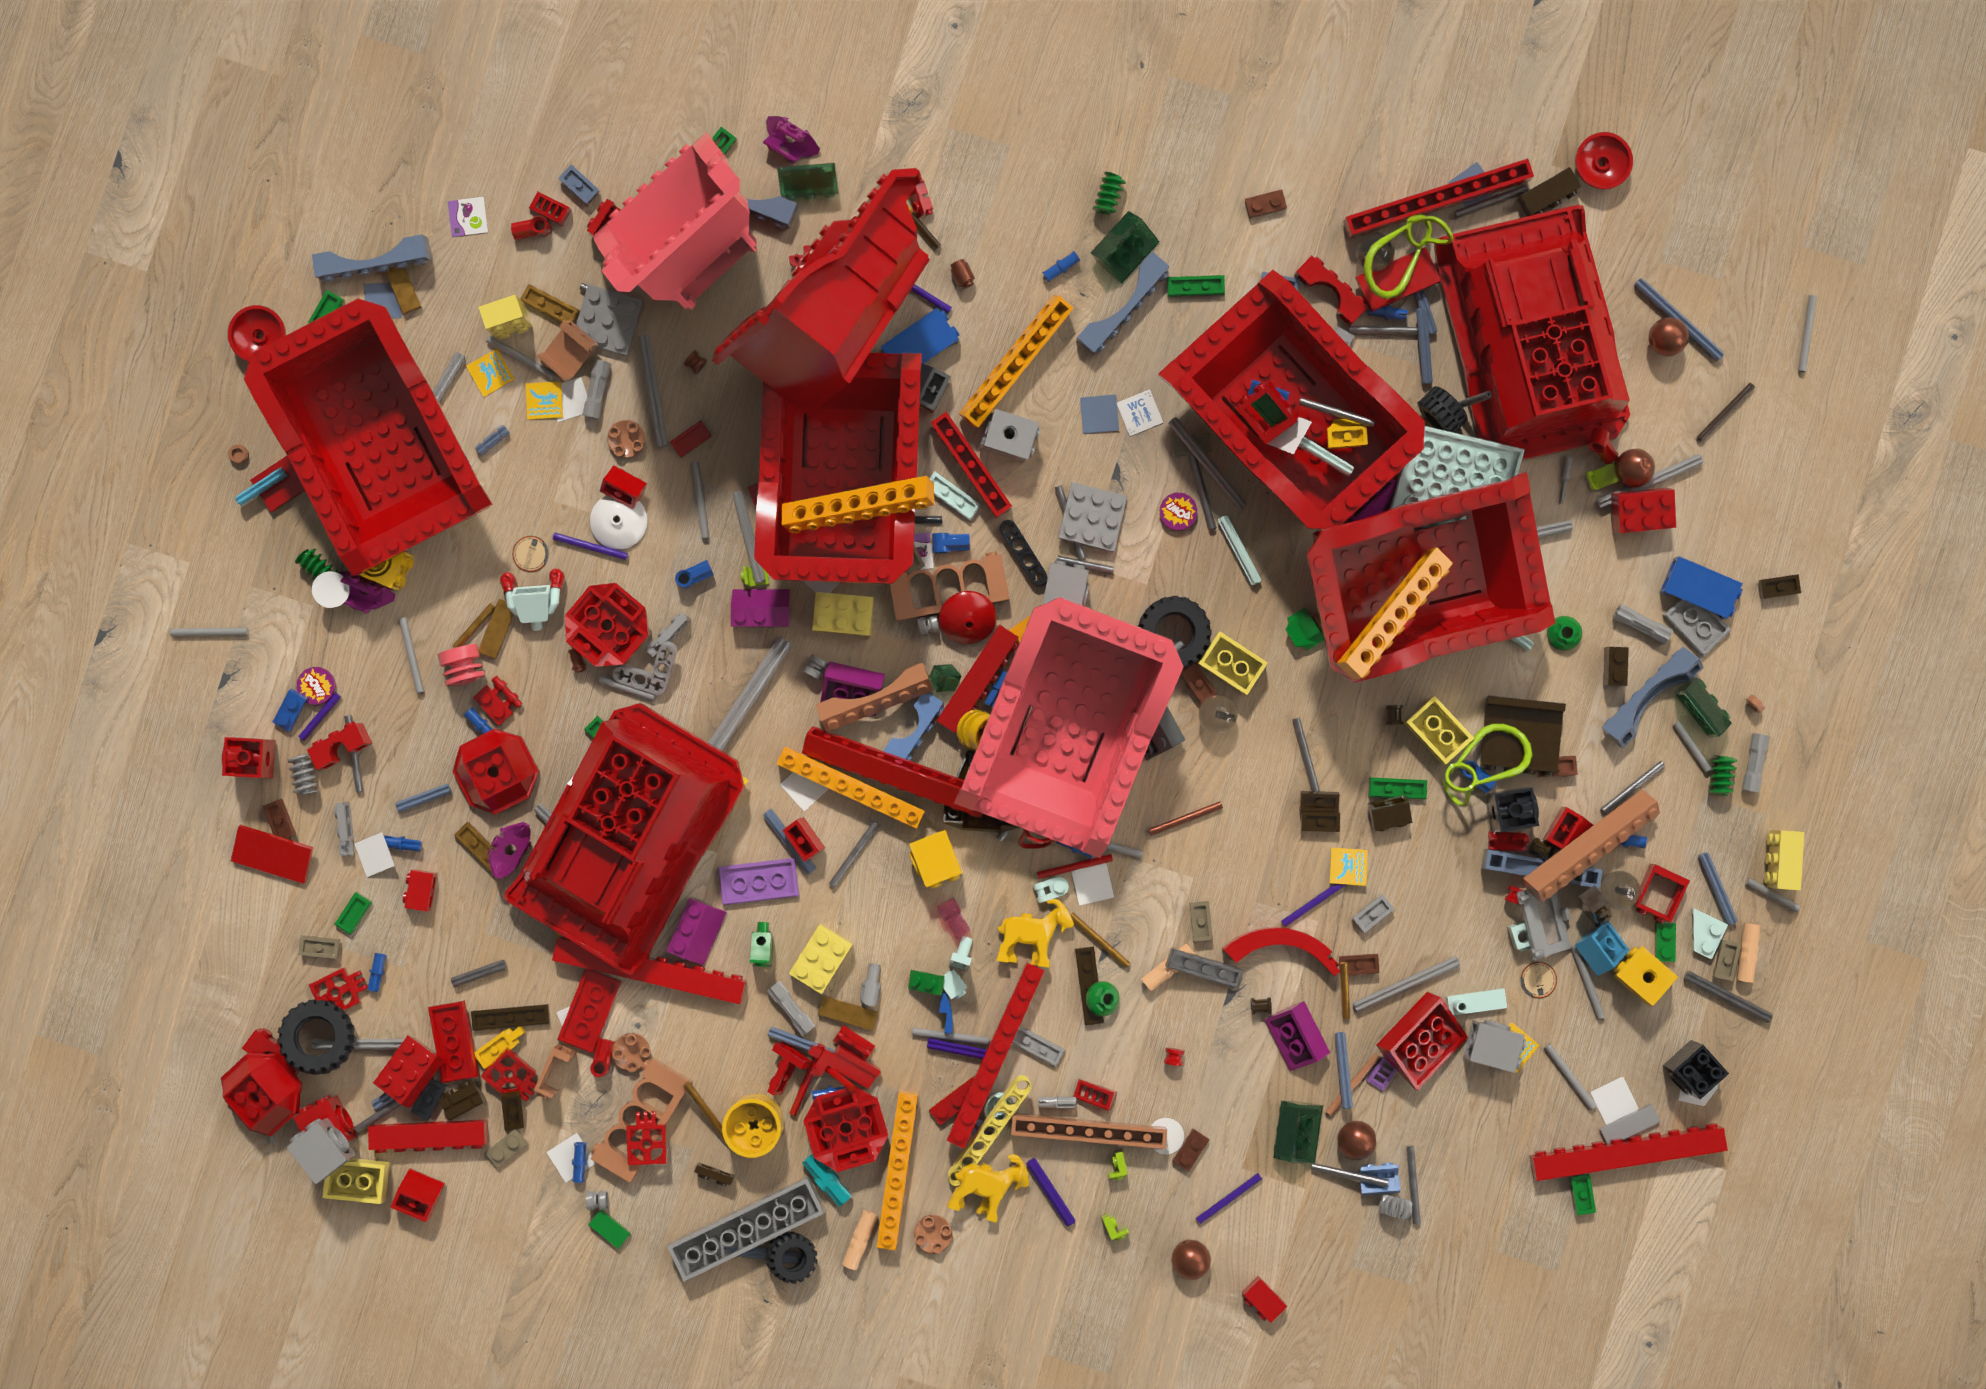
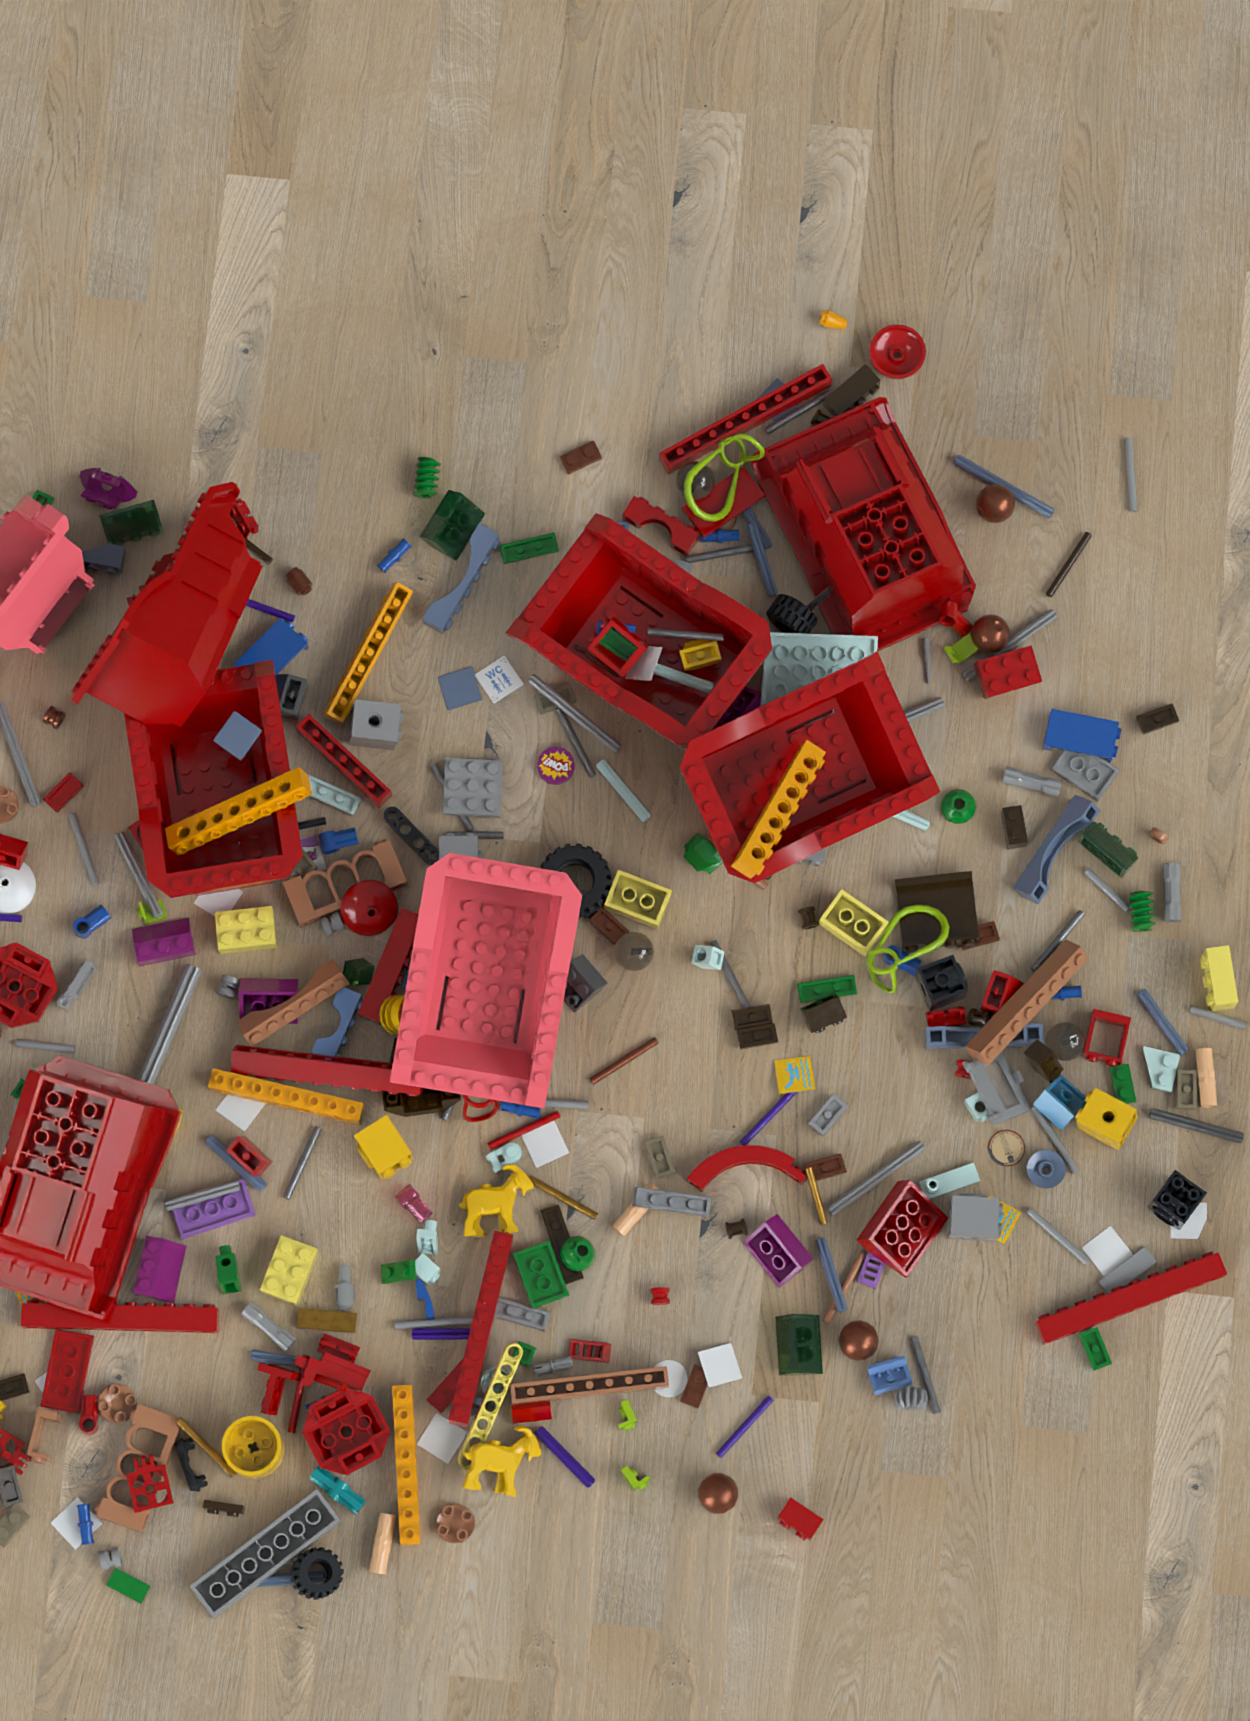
camera: 10 degrees left, 10 degrees down
(656, 675) = (72, 1025): light grey beam -> none
(690, 1143) = (182, 1447): none -> black piece
(754, 867) = (202, 1195): none -> light grey axle
(871, 426) = (237, 735): none -> sand blue sticker
(935, 1149) = (442, 1438): none -> white sticker
(1028, 1144) = (531, 1412): none -> red tile
(1036, 1084) = (528, 1353): none -> green tile
(1063, 1012) = (540, 1274): none -> green plate
(1217, 1134) = (720, 1365): none -> white sticker
(1294, 737) = (707, 957): none -> light aqua brick
(1350, 1175) = (859, 1376): flat silver bar -> none
(1512, 213) = (819, 418): none -> dark brown bush
(1545, 114) = (832, 320): none -> light orange cone
(1582, 1014) = (1047, 1159): none -> sand blue dish

